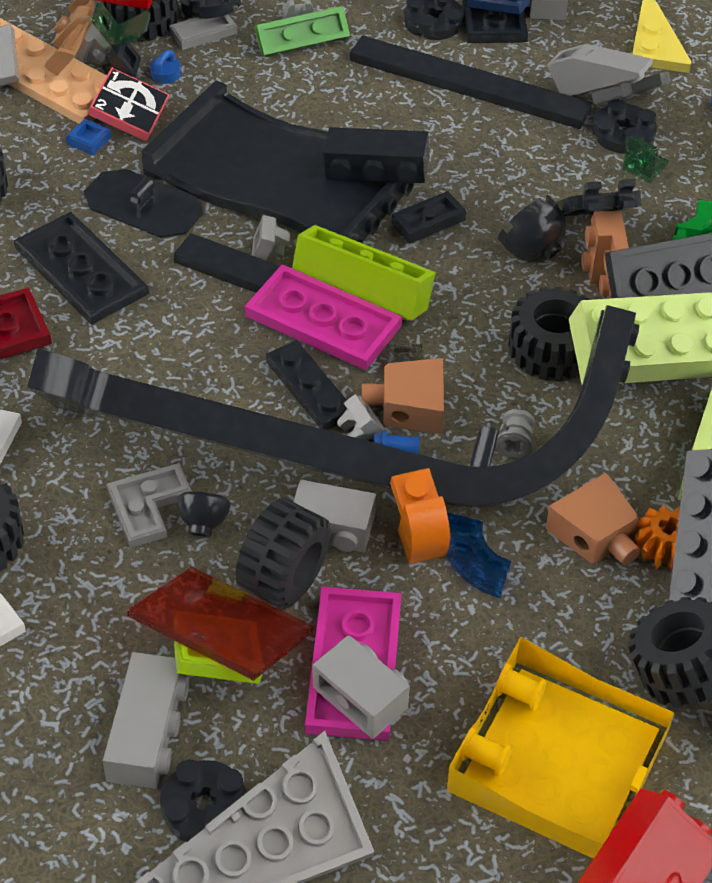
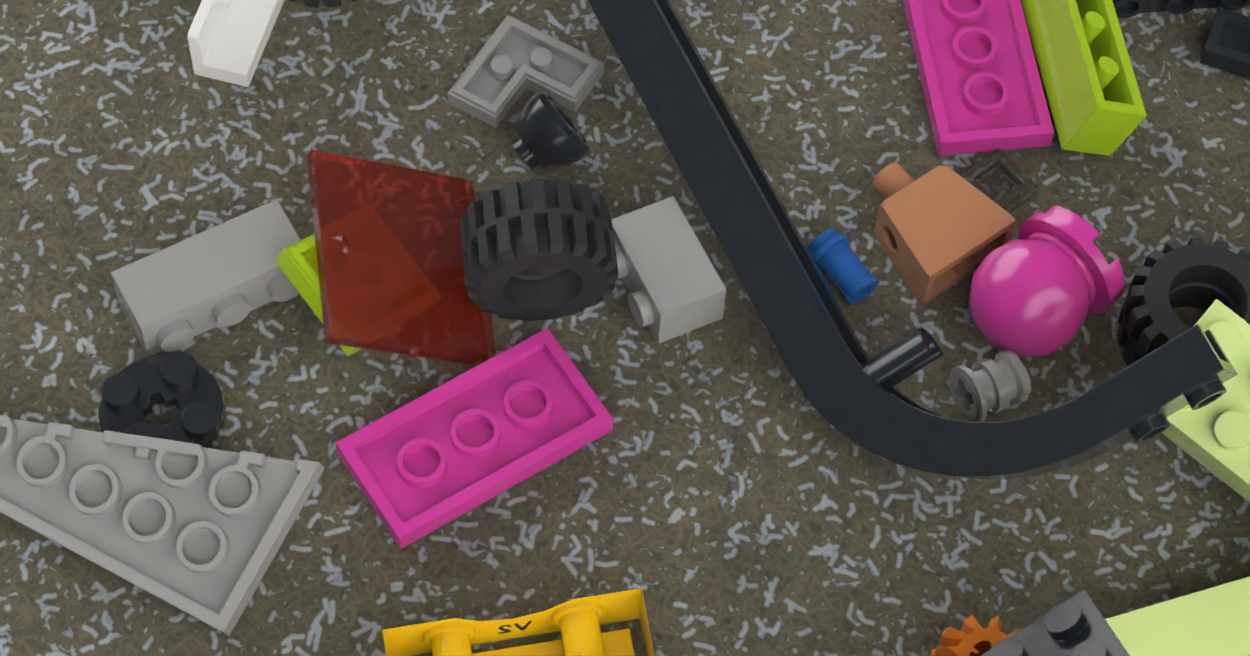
camera: 50 degrees right, 10 degrees up
(308, 384) = (853, 114): black plate -> none
(361, 686) = (421, 461): light grey brick -> none
(362, 417) = (847, 203): light grey tile -> none
(423, 515) = (731, 359): orange brick -> none
(474, 558) = (754, 459): clear blue tile -> none
(486, 371) = (1043, 285): none -> dark pink tile
(596, 522) = (929, 568): nougat torso -> none

